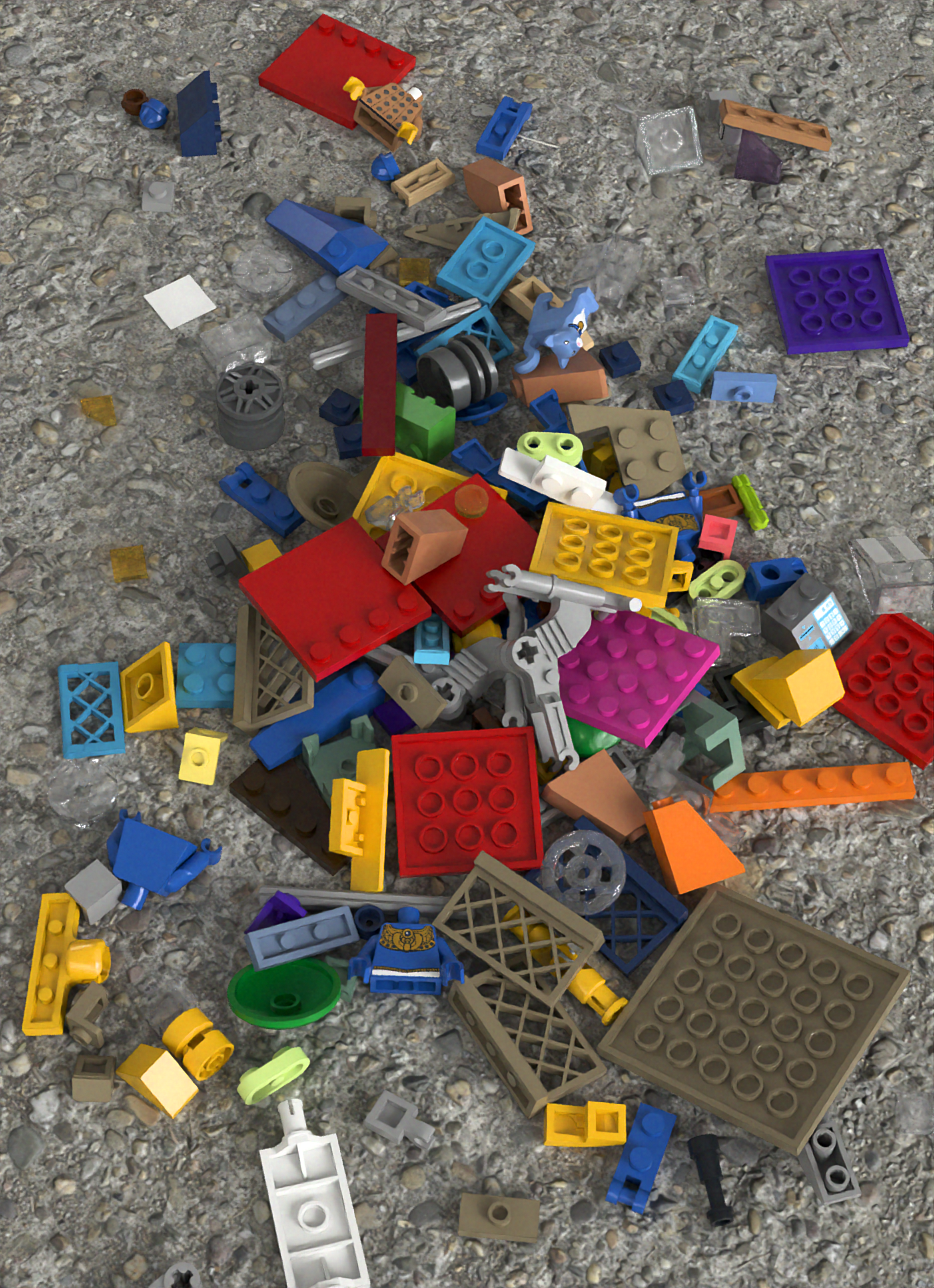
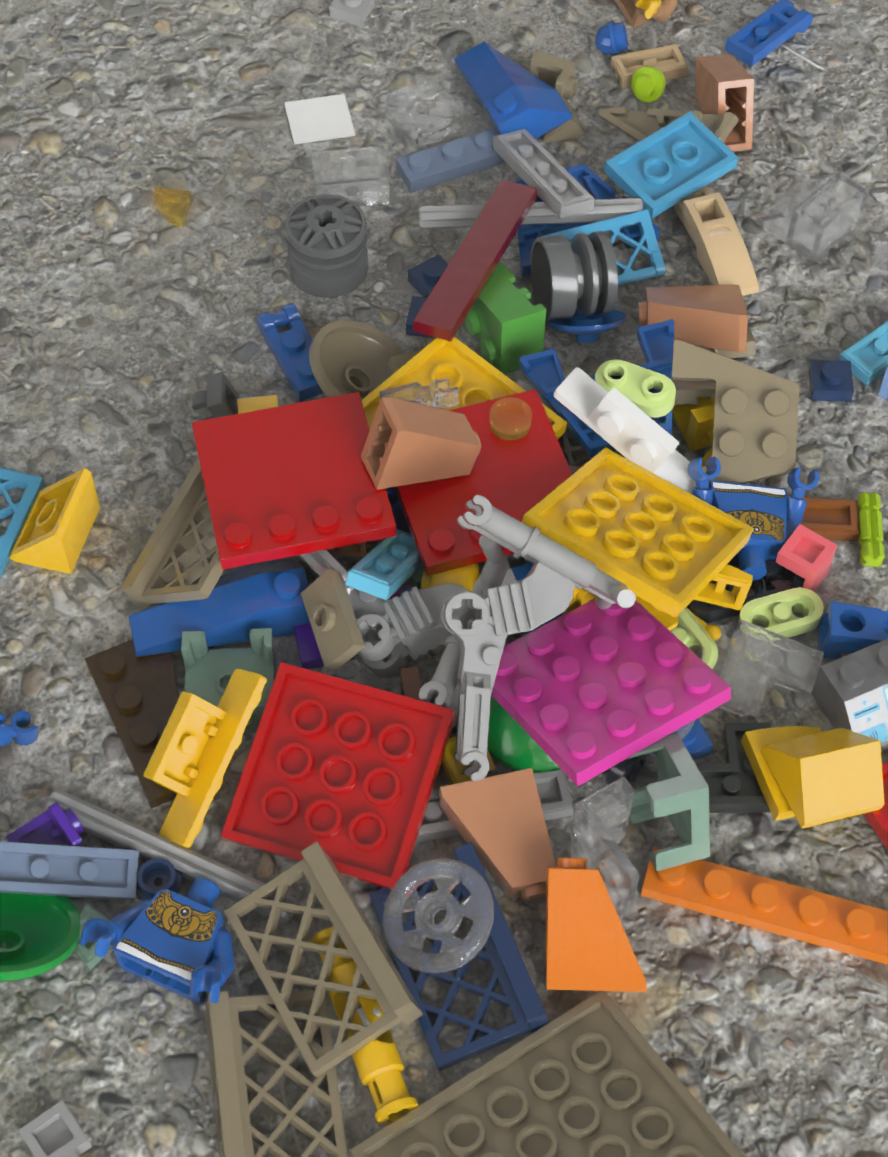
camera: 25 degrees right, 0 degrees up
(128, 563) = (113, 375): clear yellow tile -> none
(201, 755) = (71, 611): light yellow bracket -> none
(206, 675) = (124, 523): dark azure plate -> none
(414, 270) = (591, 154): clear yellow tile -> none
(432, 198) = (648, 83): none -> lime plate
(557, 328) = (714, 254): medium blue animal -> none
(619, 359) = (786, 317): dark blue plate -> none
(725, 829) = (647, 925): clear plate -> none

